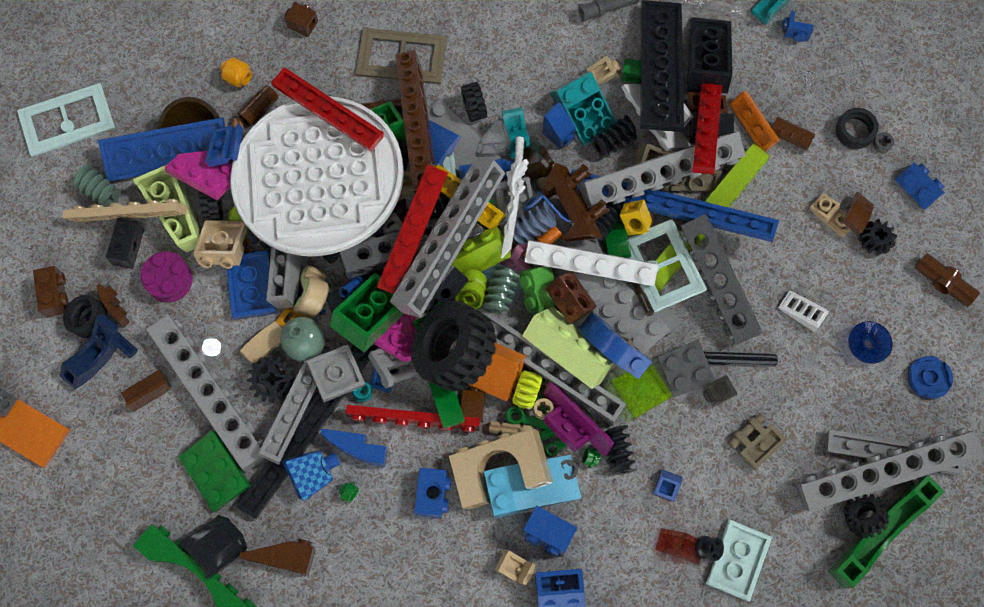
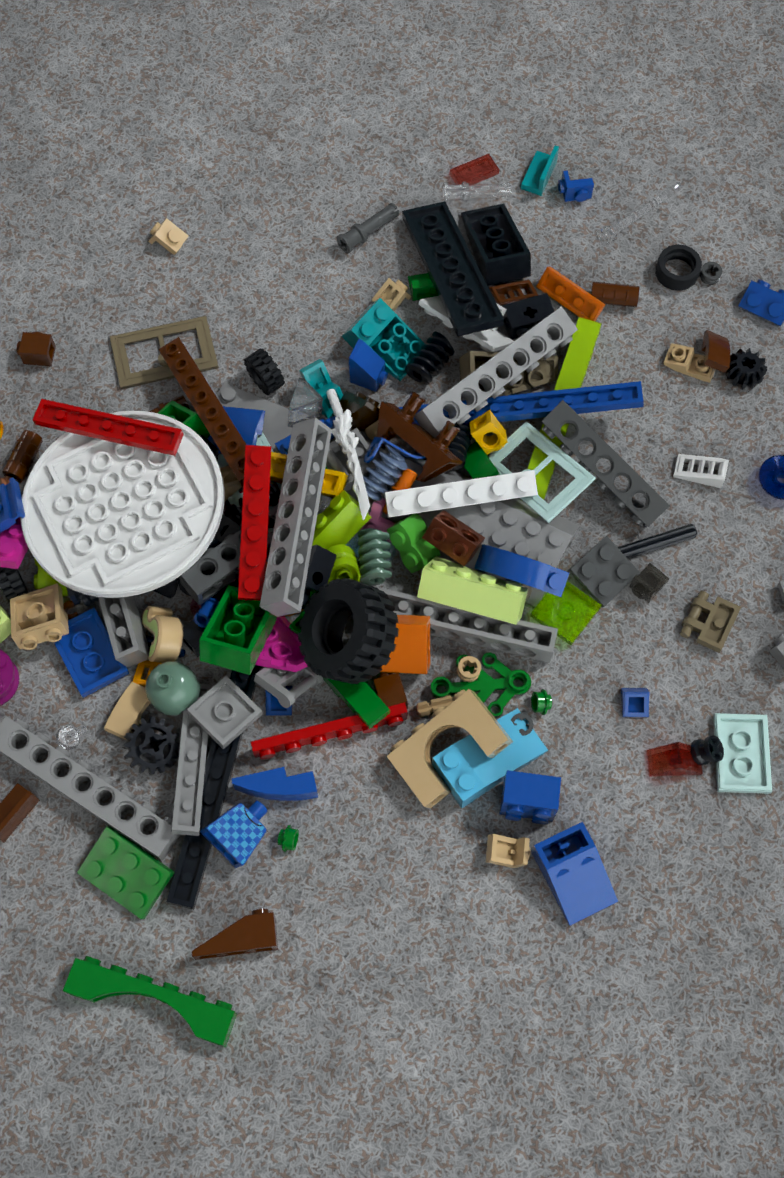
camera: 20 degrees left, 5 degrees down
(215, 545) = (159, 954): black slope -> none
(366, 395) = (267, 725): teal plate -> none
(430, 479) = (380, 820): blue brick -> none
(527, 389) = (444, 654): neon yellow gear -> none
(572, 423) = (509, 671): magenta bracket -> none
(618, 453) = (567, 684): black piece -> none
(644, 300) = (532, 513): dark brown piece -> none
(707, 129) = (528, 314): red plate -> none

